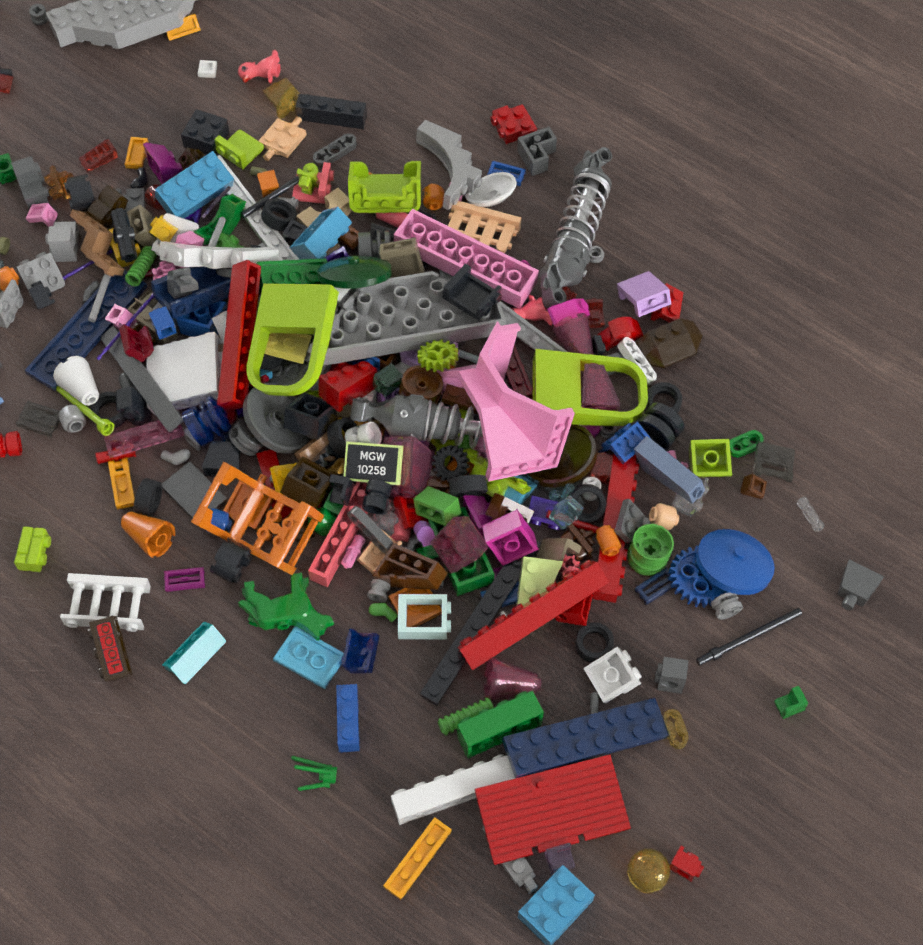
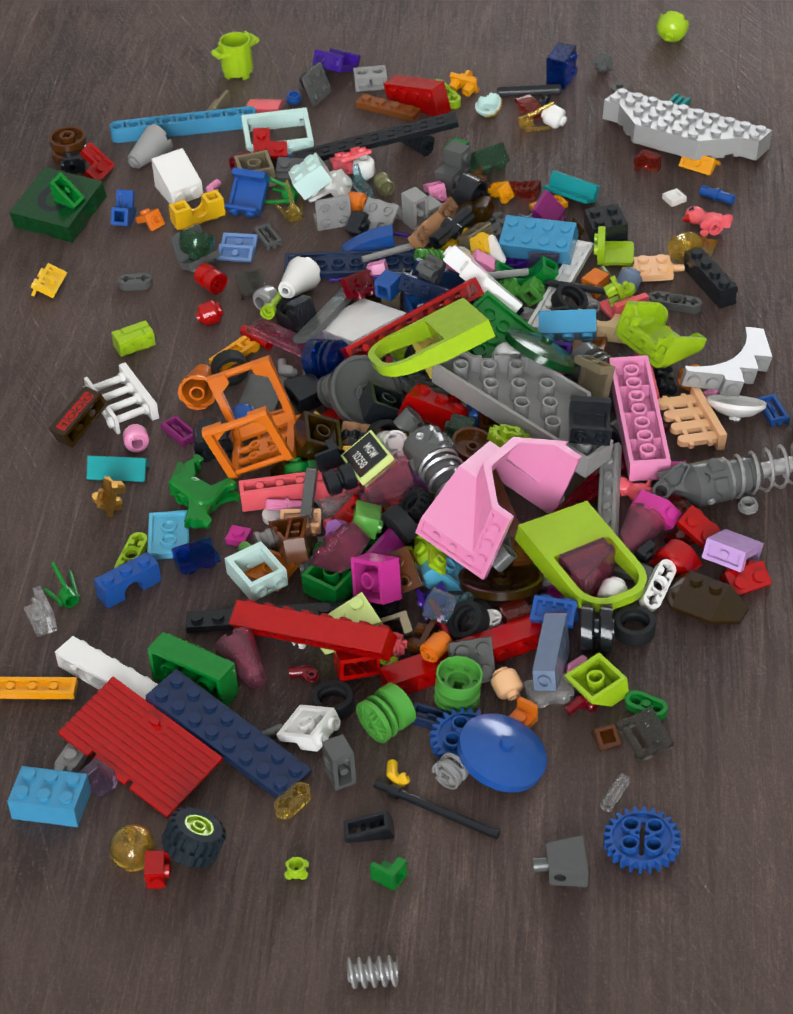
camera: 60 degrees right, 20 degrees down
(13, 97) = (526, 120): none -> clear yellow plant
(27, 75) = (554, 116): none -> white head
(42, 149) = (490, 158): none -> clear green slope
(52, 471) = (209, 313): none -> red head
(70, 301) = (371, 240): none -> blue slope
(90, 168) = (502, 190): none -> light orange bracket
(135, 124) = (572, 187): none -> teal panel
(148, 54) = (648, 160): none -> clear red bracket
(171, 618) = (135, 438): none -> bright pink head
(232, 41) = (717, 195): none -> blue pin
(236, 677) = (107, 497): none -> pearl gold hips
(243, 231) = (533, 286): none -> bright green brick
(288, 162) = (630, 275): none -> sand blue head
(300, 692) = (130, 548): none -> lime beam
(336, 807) = (40, 613): none -> clear bracket
(350, 573) = (270, 515): none -> white tile
(354, 606) = (237, 535): none -> dark pink plate
(548, 643) = (306, 672): none -> dark red arm
(605, 298) = (697, 526): none -> red bracket
(624, 392) = (611, 587): none -> white head
(644, 614) = (386, 712): none -> bright green wheel
(681, 820) = (193, 837): none -> black wheel
(697, 645) = (394, 776): none -> yellow arm
(699, 526) = (525, 712): none -> orange bracket
(713, 485) = (579, 702): none -> dark red arm
(745, 677) = (378, 833): none -> black slope
(745, 758) = (292, 866): none -> lime plate
(858, 536) = (661, 840): none -> blue gear
(879, 767) = (373, 972): none -> light grey piece

